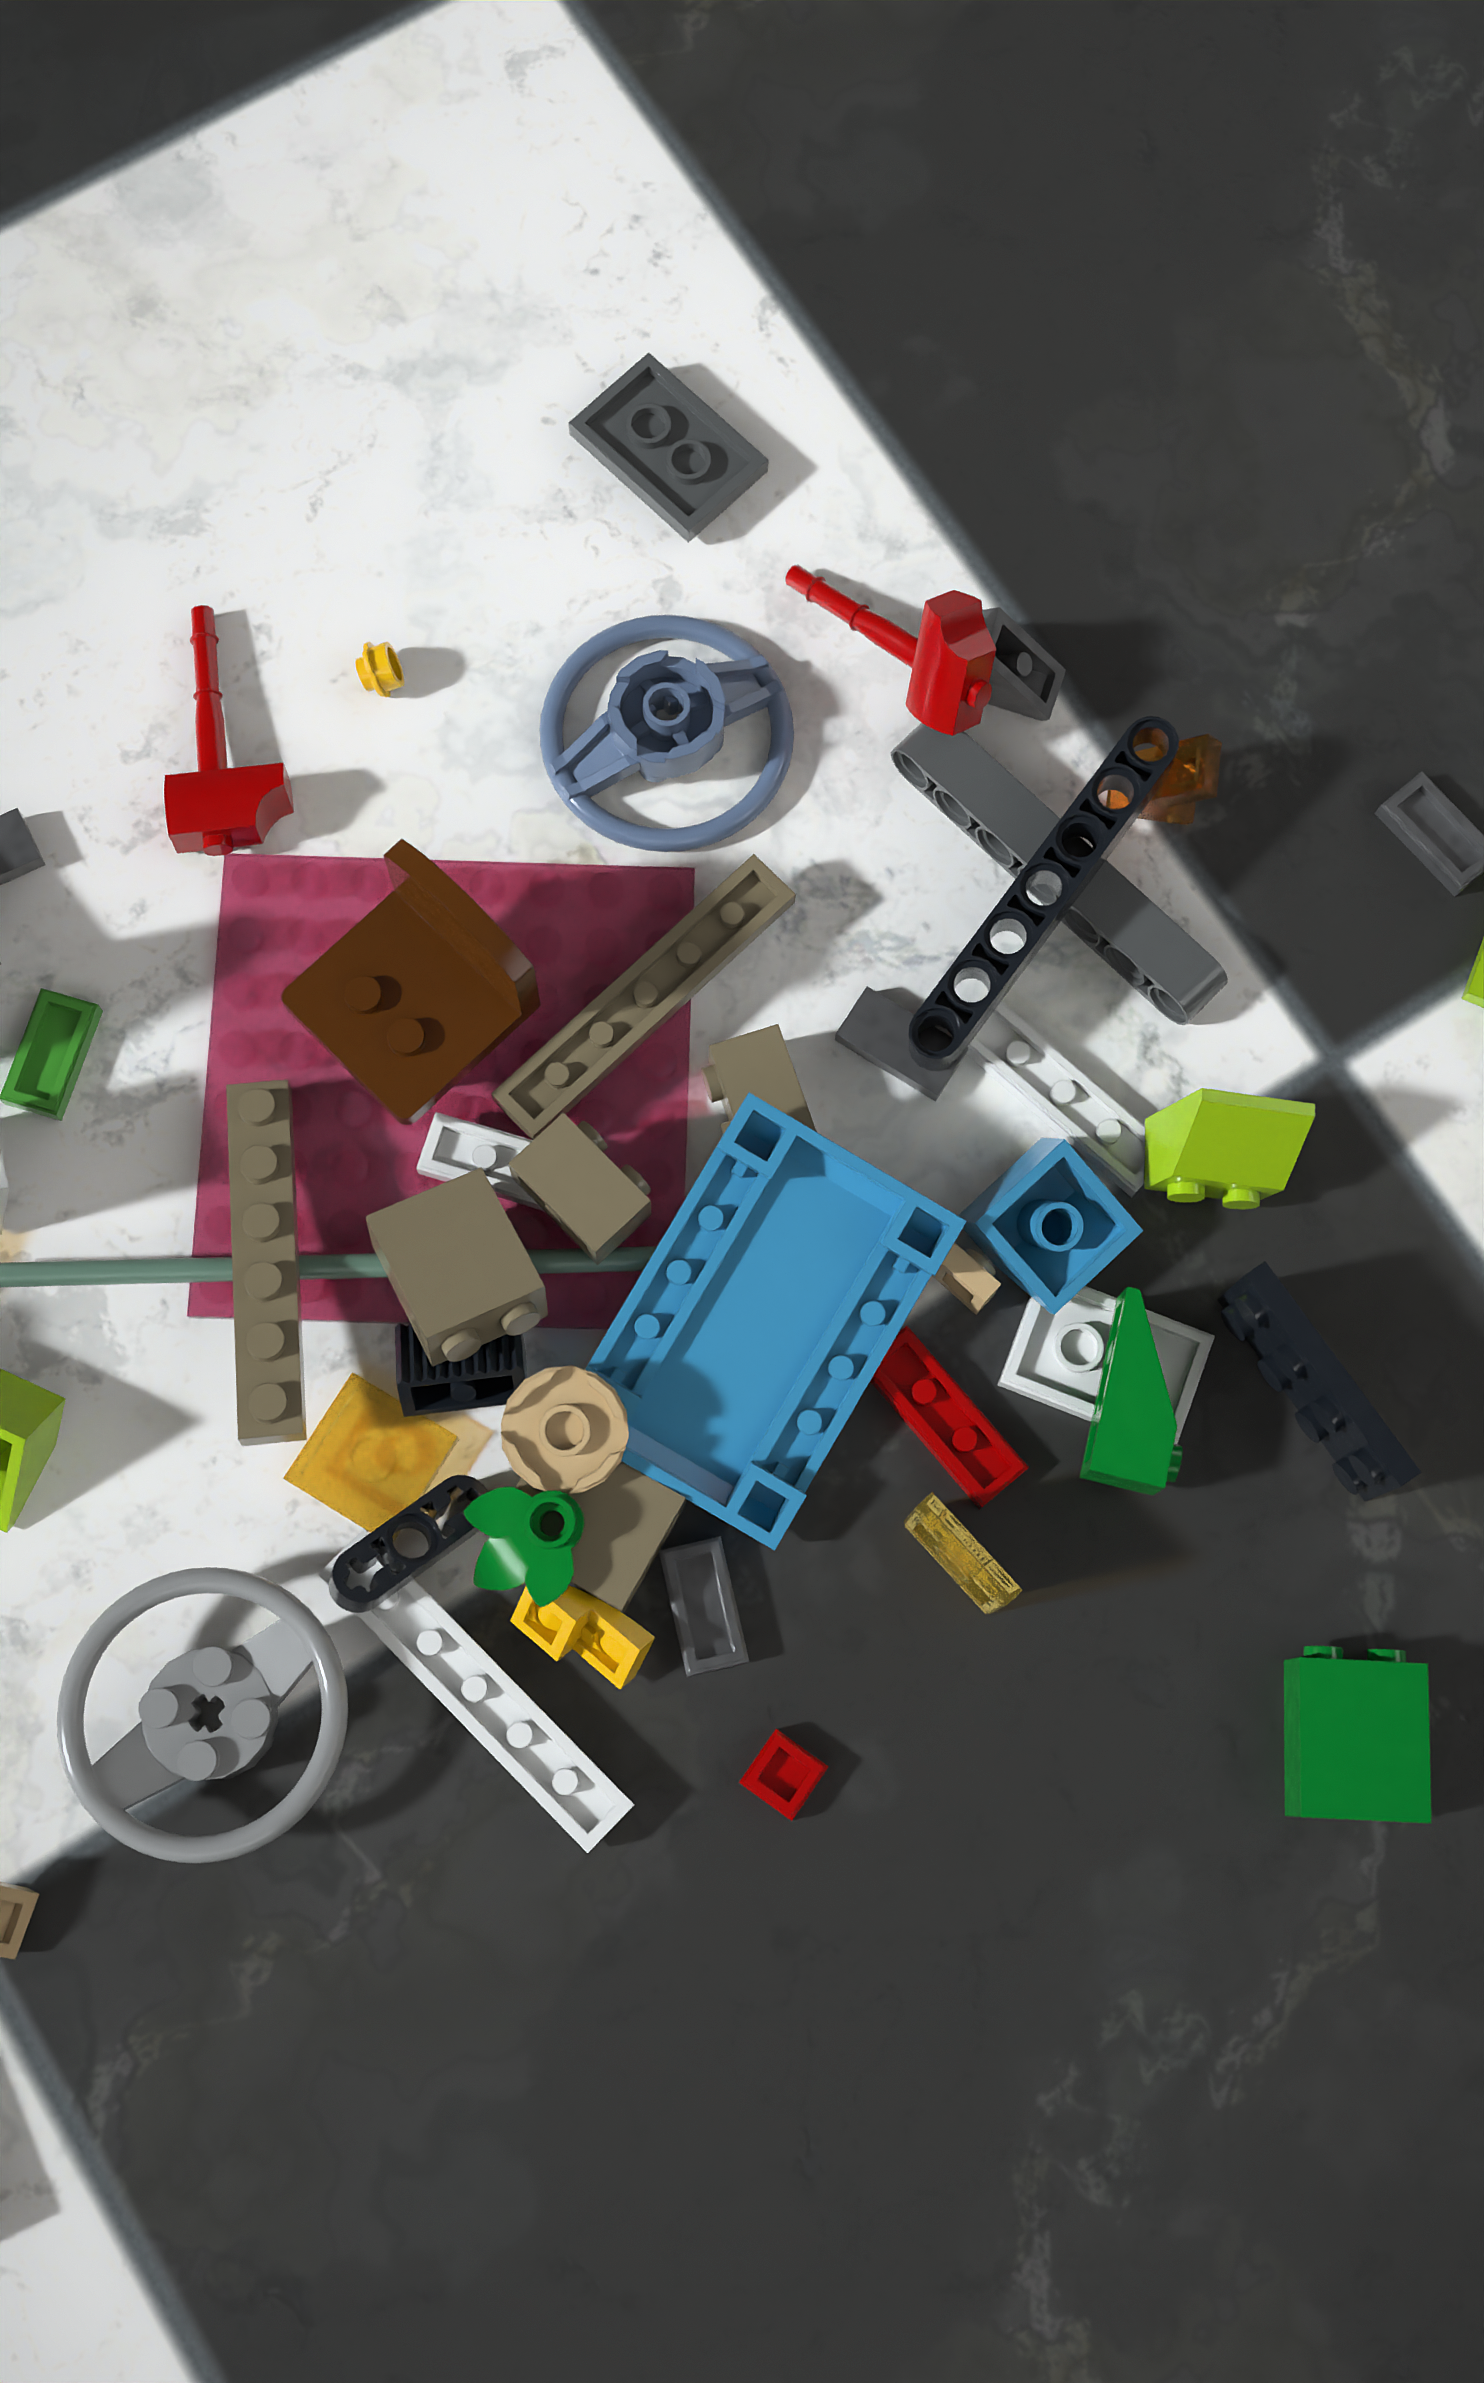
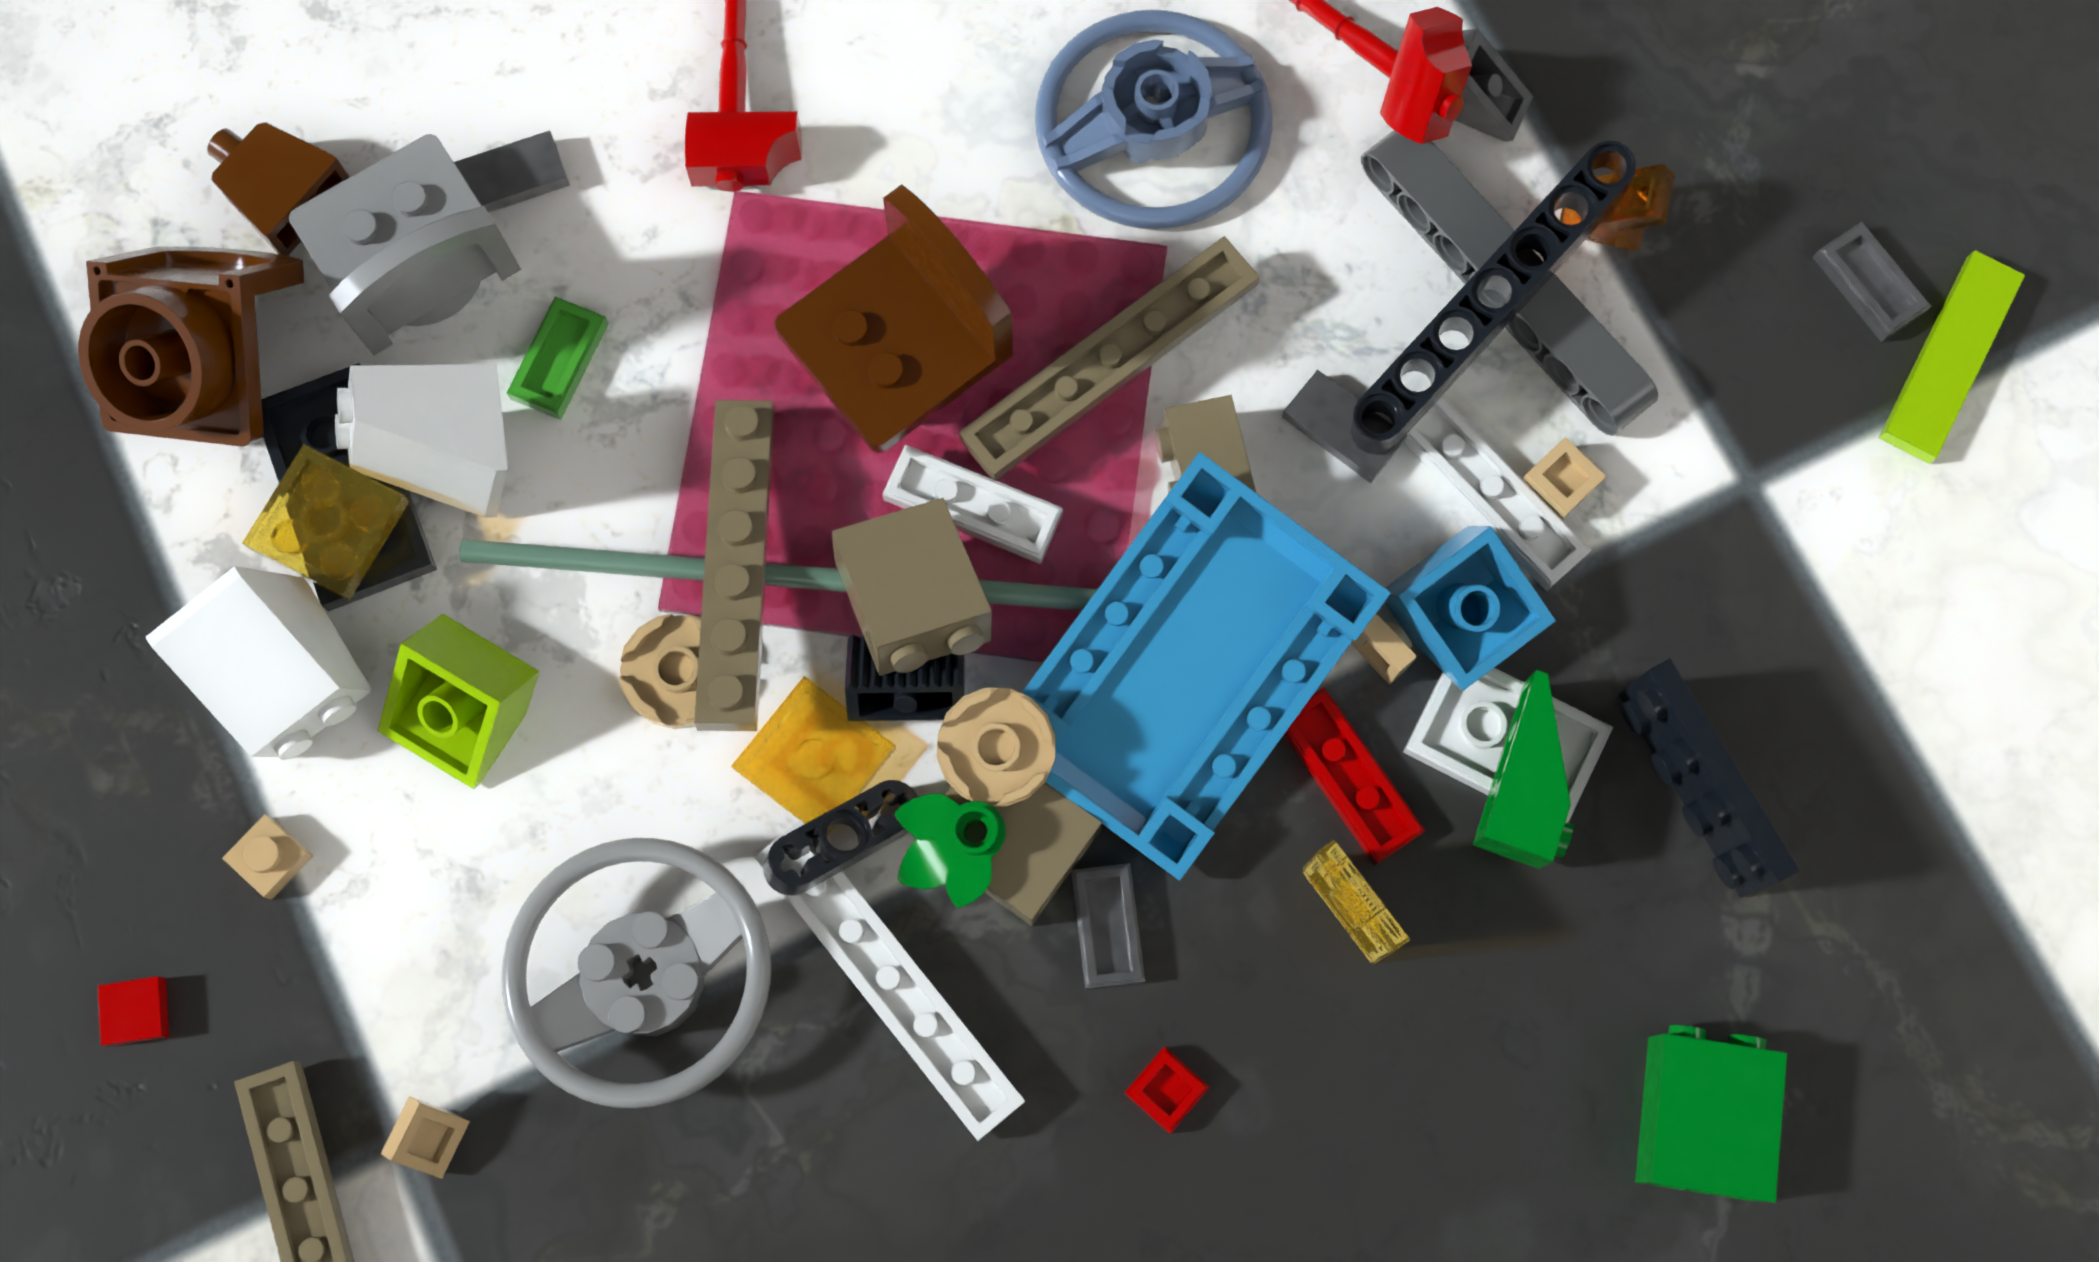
camera: 10 degrees right, 0 degrees up
(198, 1381) = (662, 670): none -> tan tile
(379, 668) = (894, 35): yellow plate -> none
(582, 1186) = (1034, 525): dark tan brick -> none
(589, 1627) = (999, 933): yellow slope -> none
(1137, 1075) = (1564, 478): none -> tan plate
(1224, 1147) = (1641, 550): lime slope -> none

